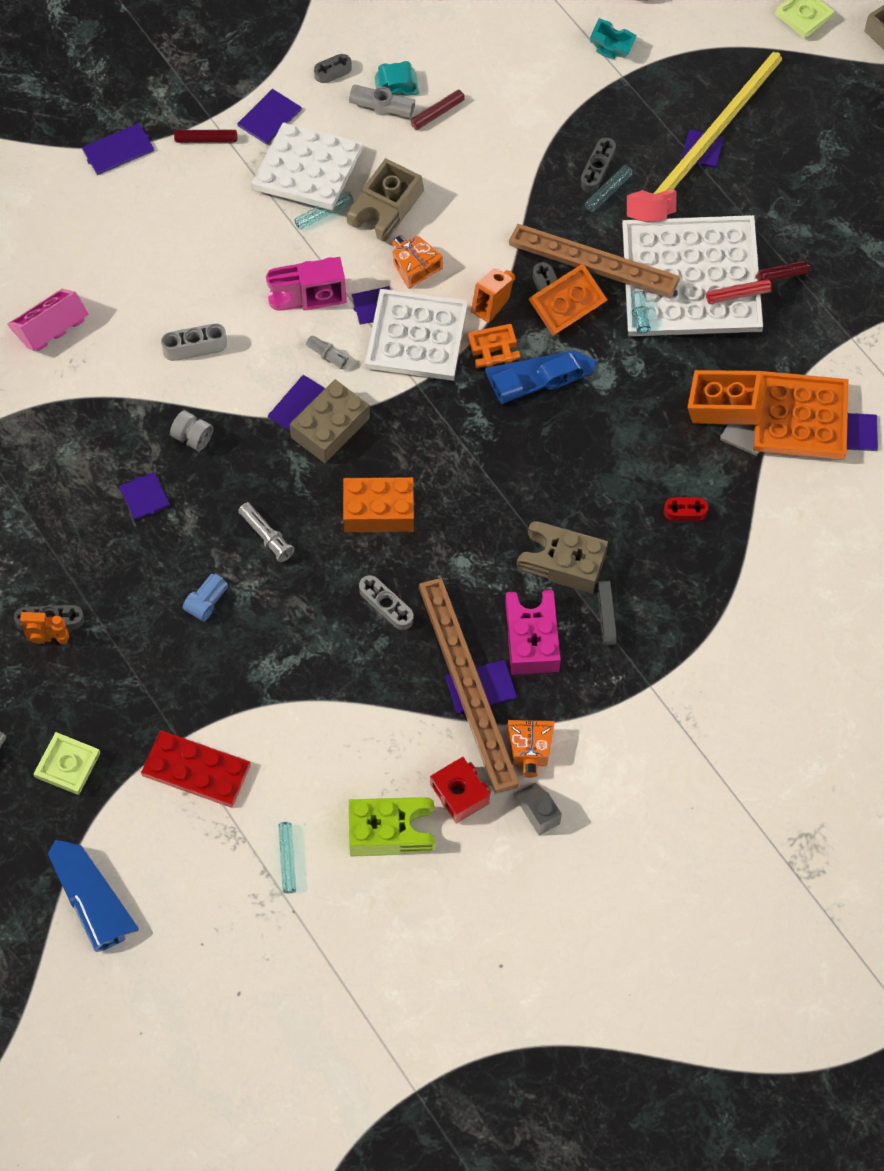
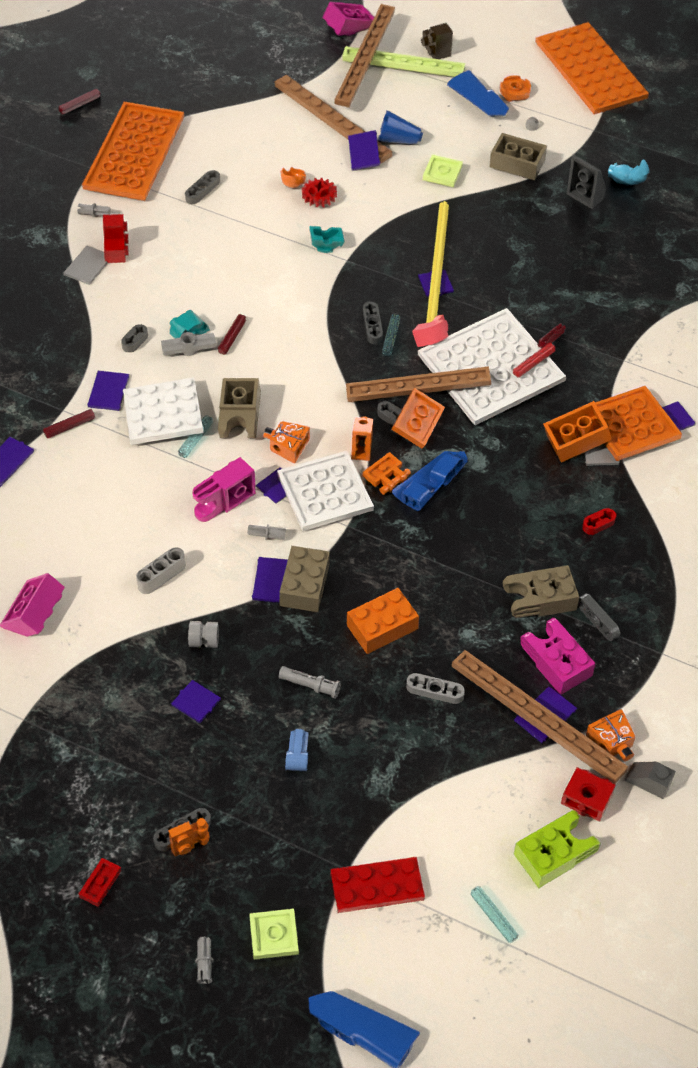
camera: 30 degrees left, 10 degrees down
(640, 312) = (476, 403): clear light blue axle -> none

